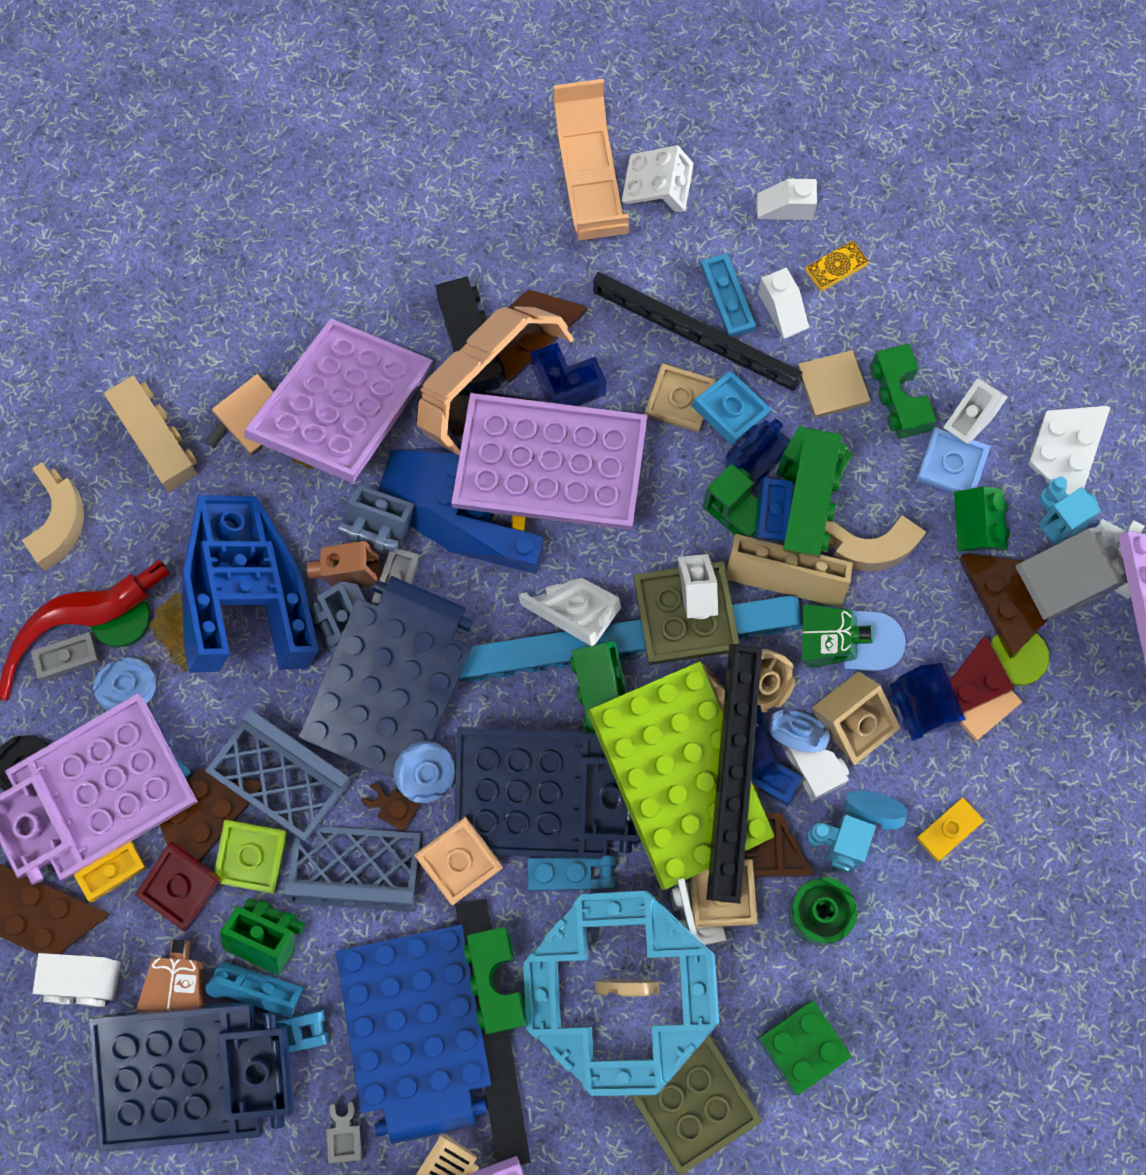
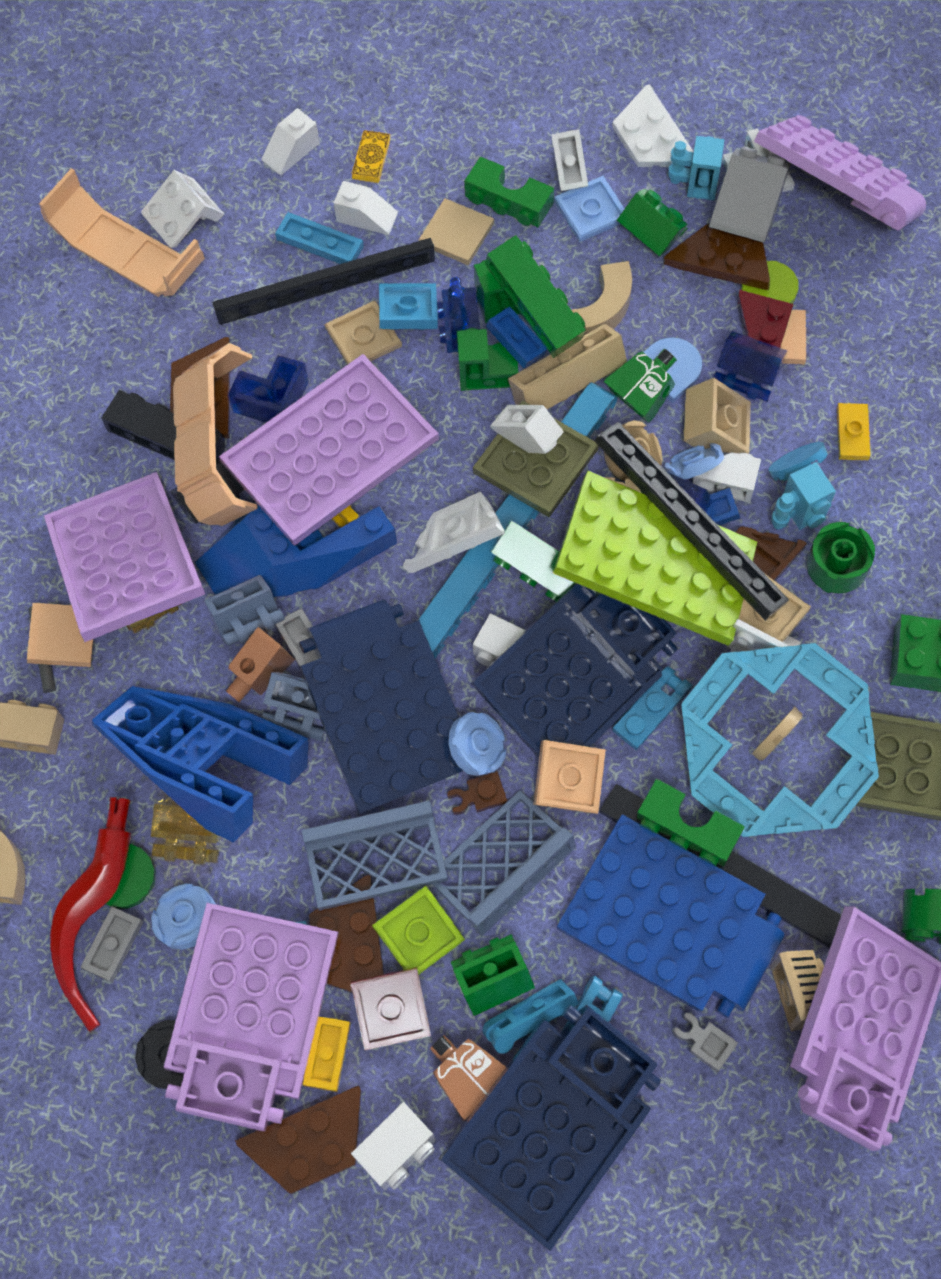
camera: 45 degrees left, 5 degrees down
(517, 712) = (494, 639): none -> white slope

